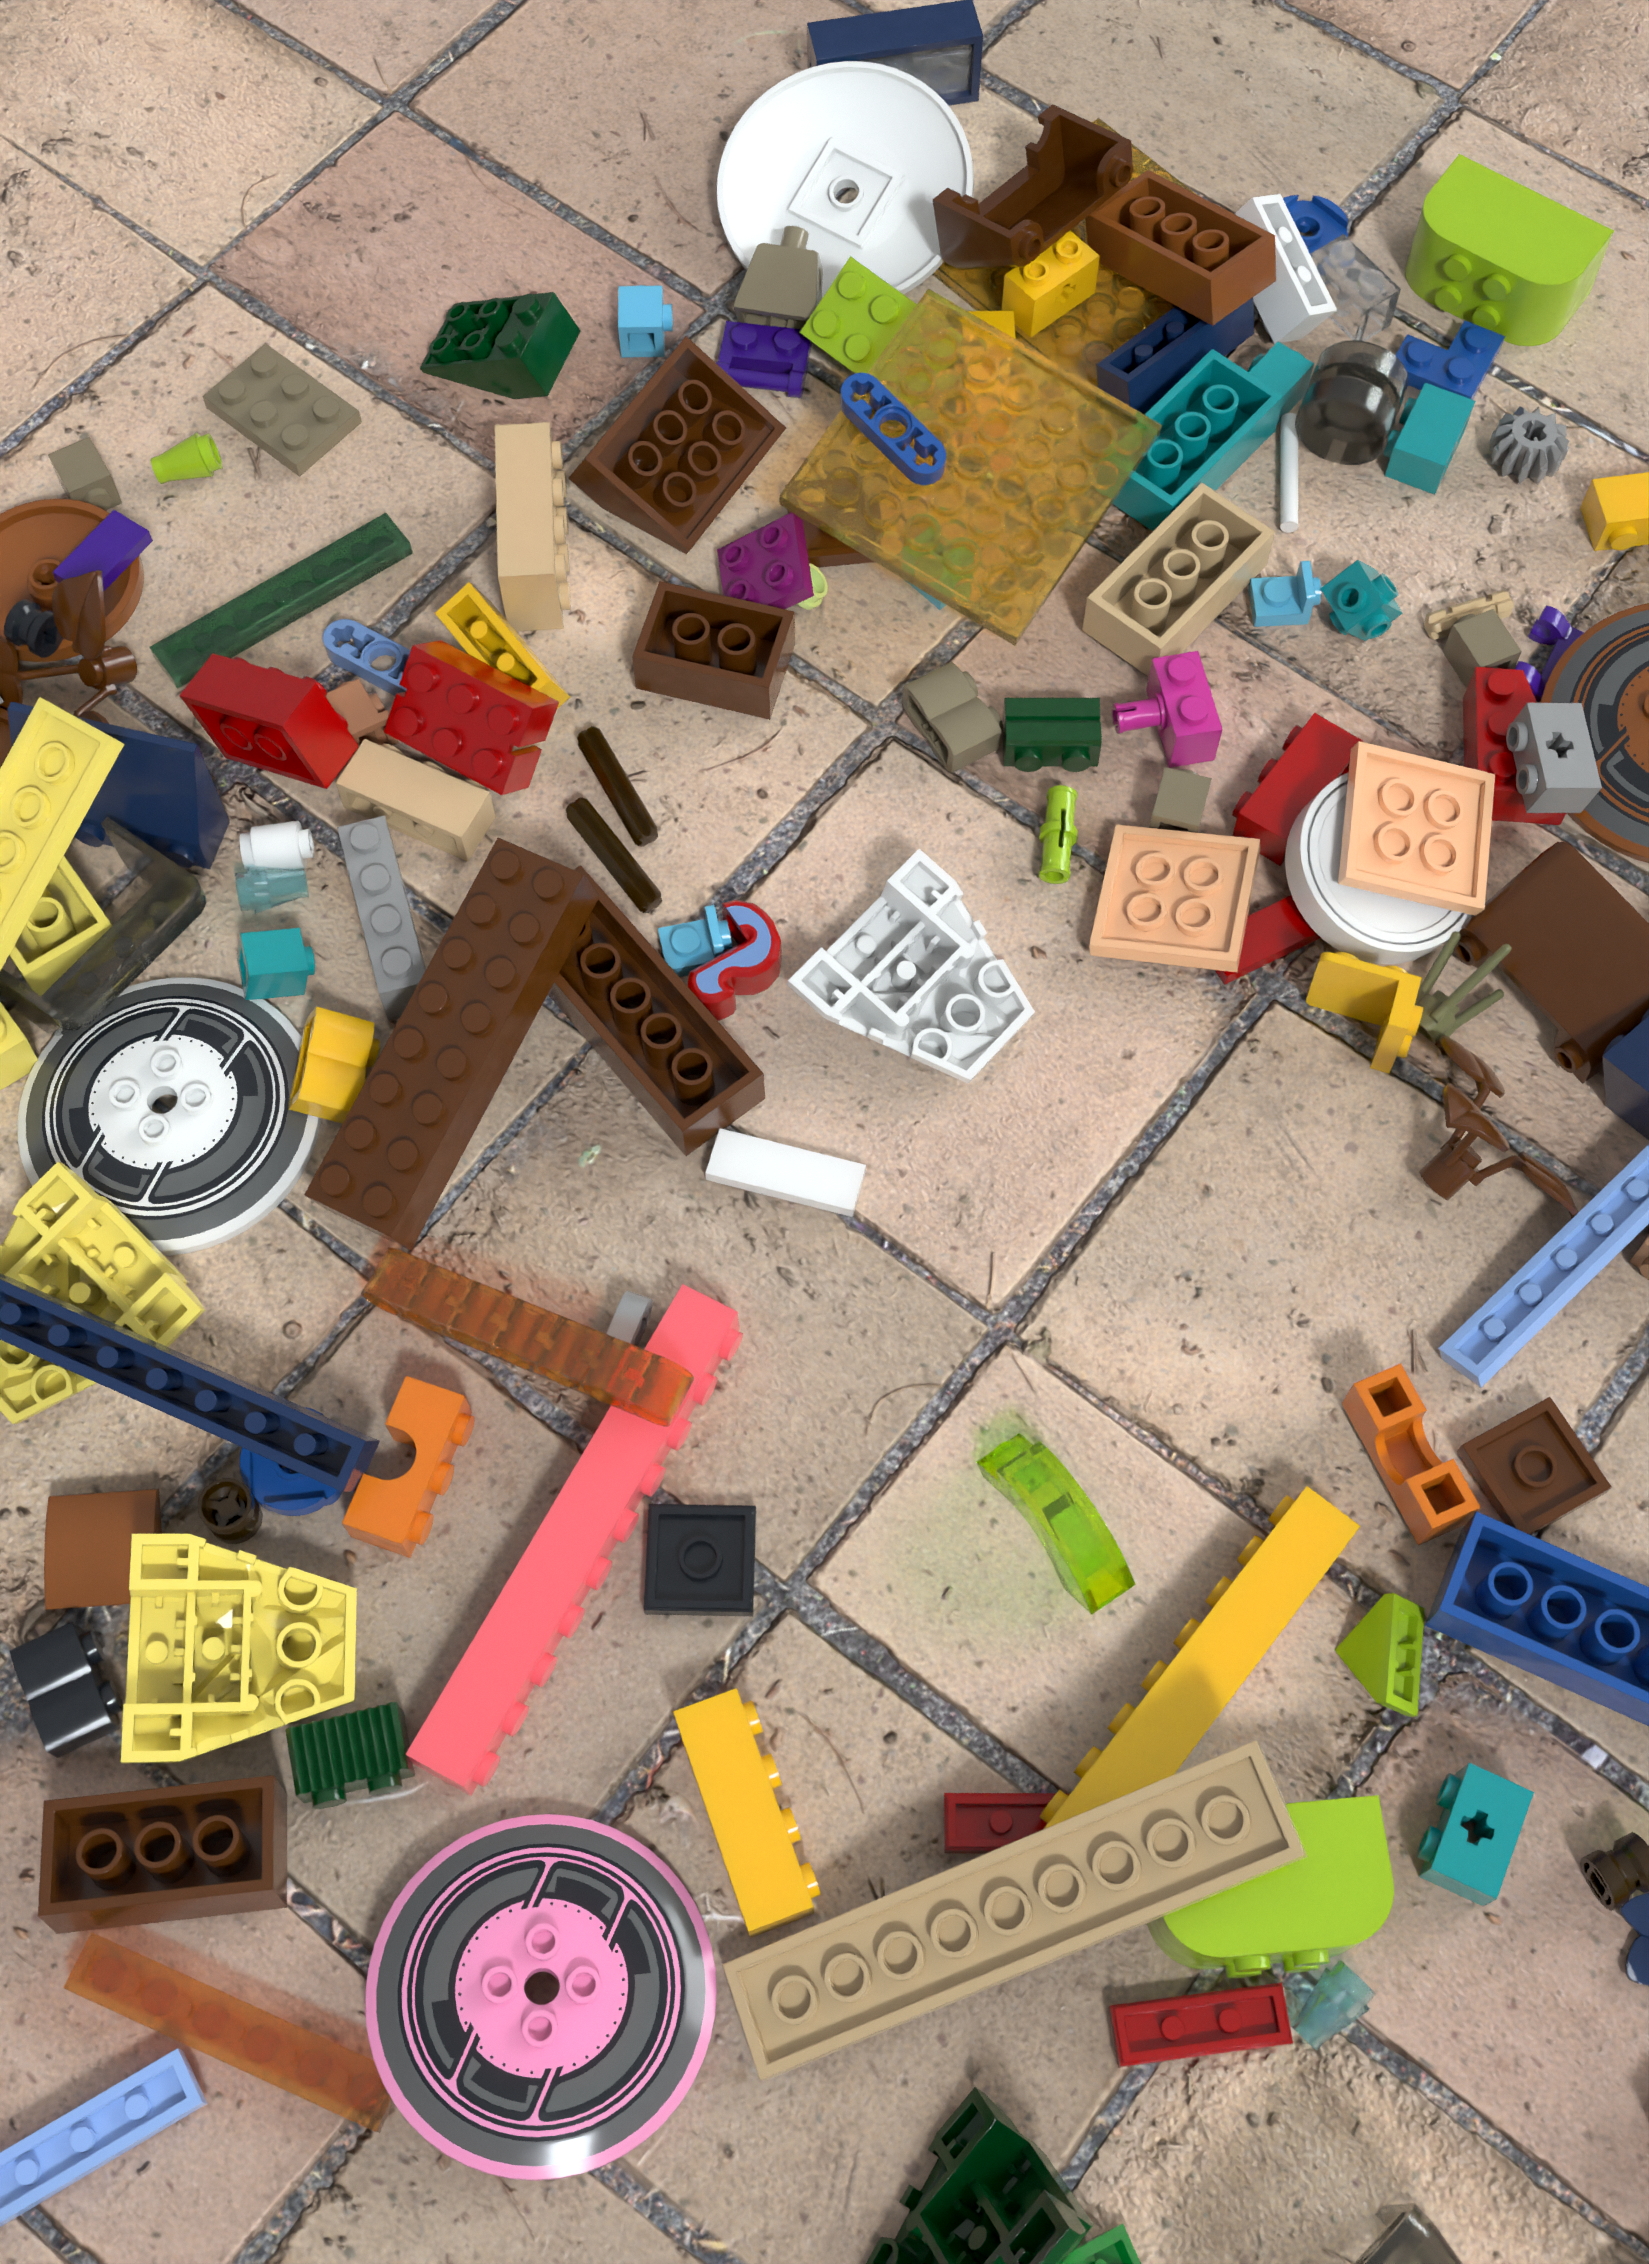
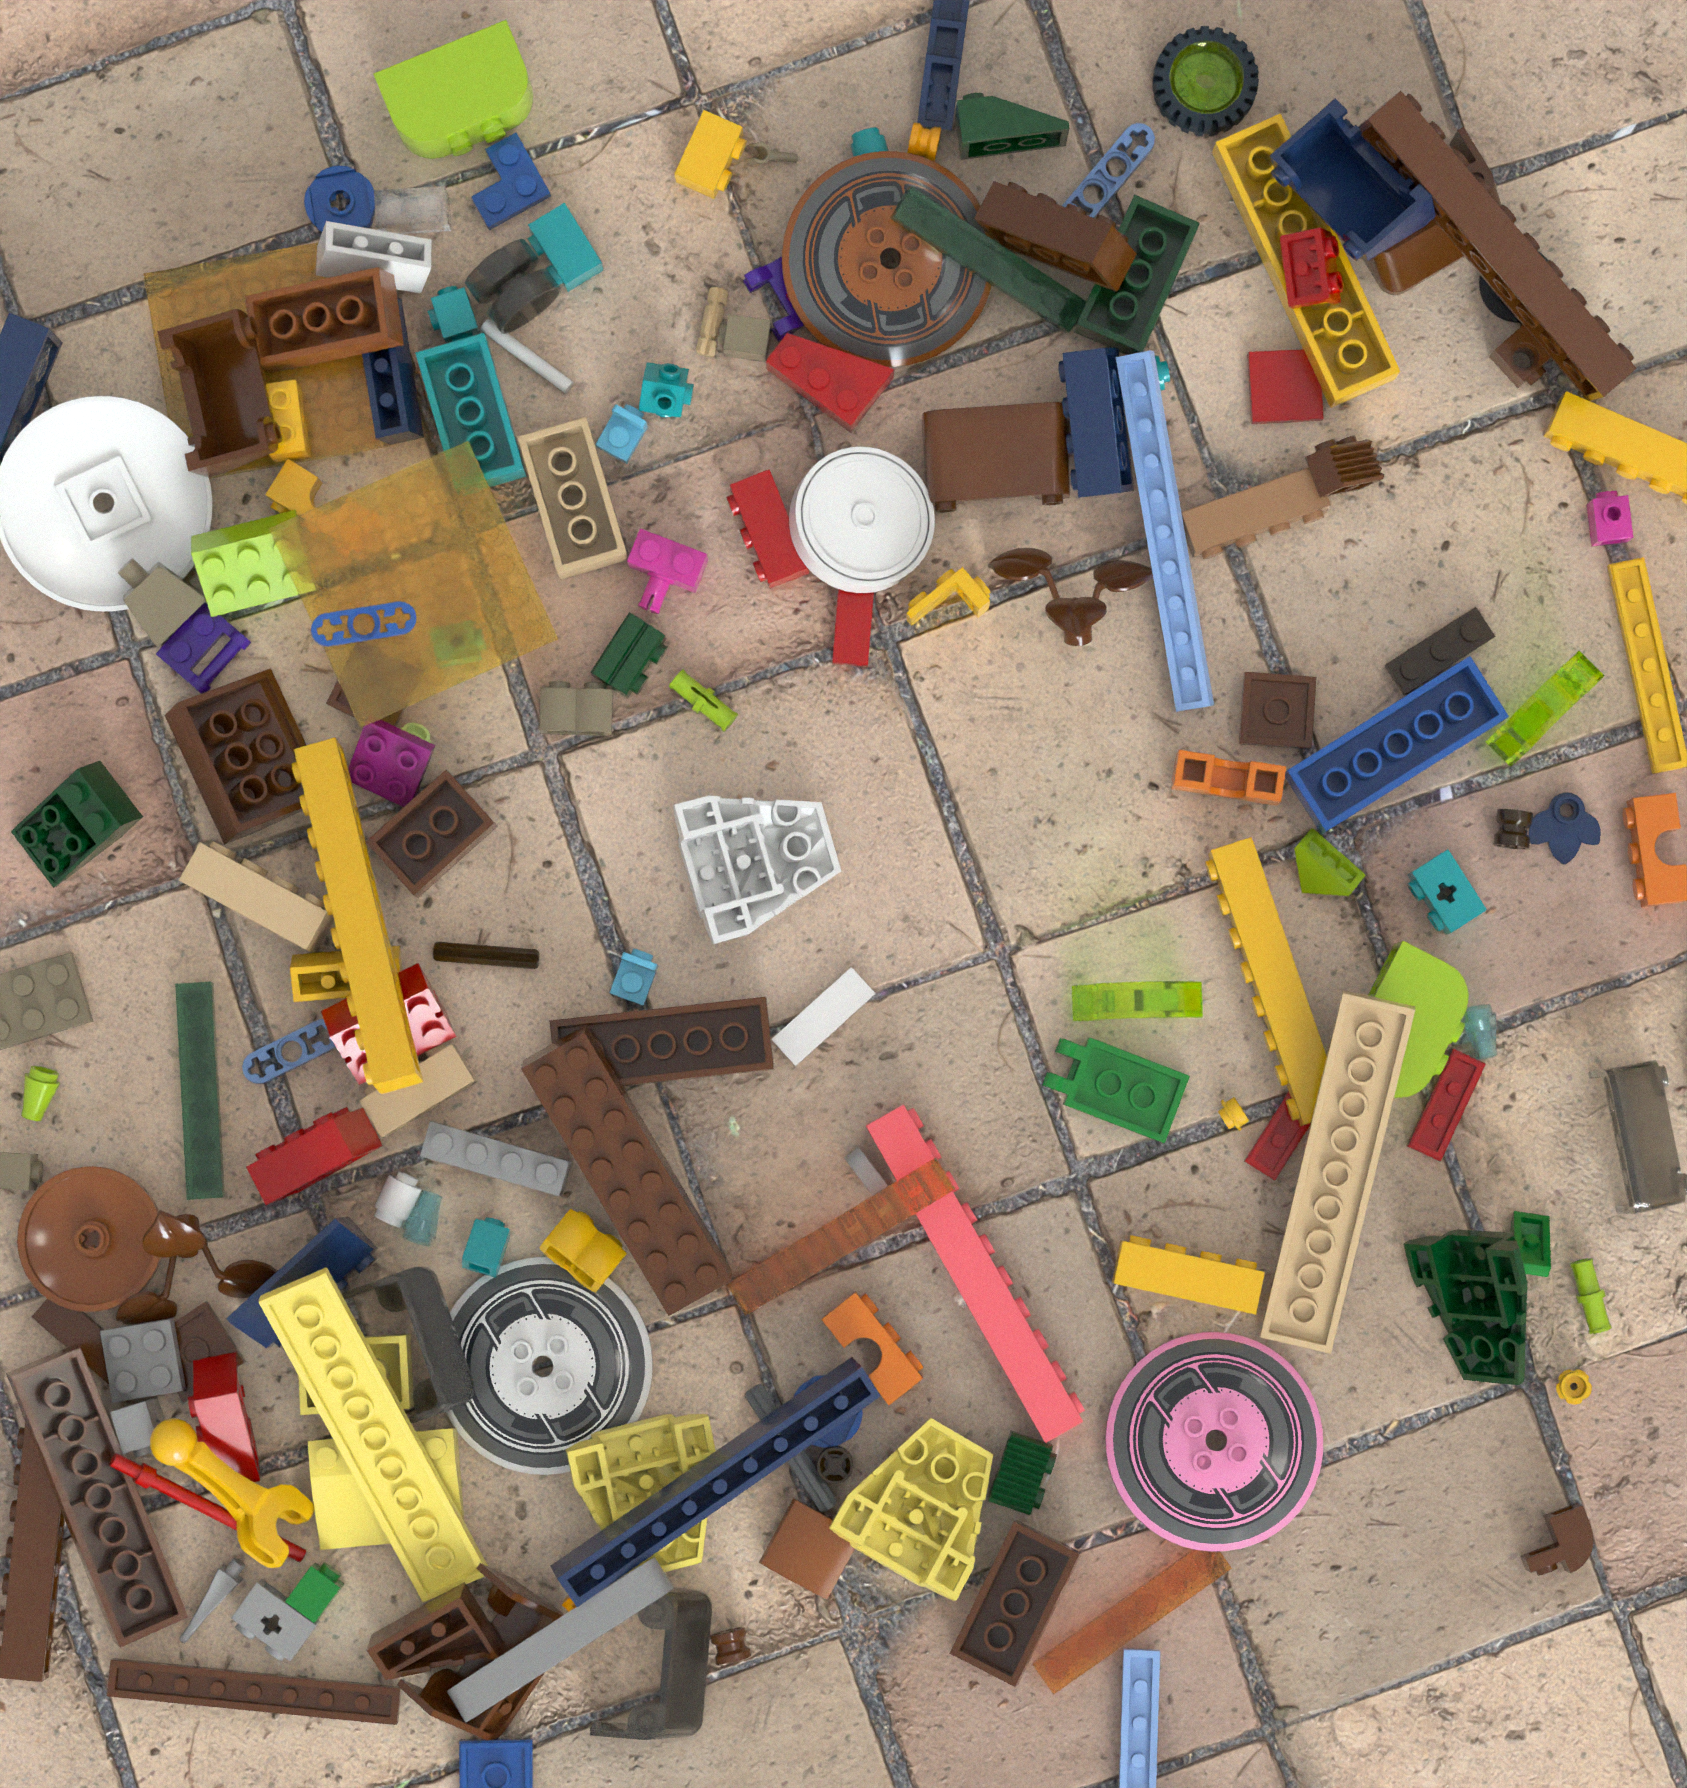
camera: 55 degrees left, 20 degrees up
(32, 627) = (142, 1271): black wheel -> none
(67, 1689) = (884, 1610): black brick -> none
(106, 549) = (104, 1195): dark purple tile -> none
(217, 1455) = (801, 1463): none -> dark grey axle
(362, 712) = (330, 1091): nougat brick -> none
(560, 607) = (357, 916): none -> yellow brick
(613, 855) = (536, 988): dark brown axle -> none
(643, 321) = (119, 711): medium azure brick -> none
(700, 1560) = (1029, 1213): black tile -> none
(743, 969) = (674, 958): red animal -> none
(932, 1572) = (1119, 1087): none -> green tile
(995, 1737) = (1233, 1114): none -> yellow plate
(1175, 898) = (797, 661): light nougat plate -> none
(1180, 800) = (734, 612): dark tan brick -> none
(1417, 829) = (859, 490): light nougat plate -> none
(1439, 1008) = (976, 555): olive plant -> none
(1529, 445) = (623, 176): light grey gear -> none
(1553, 758) = (853, 360): light grey brick -> none

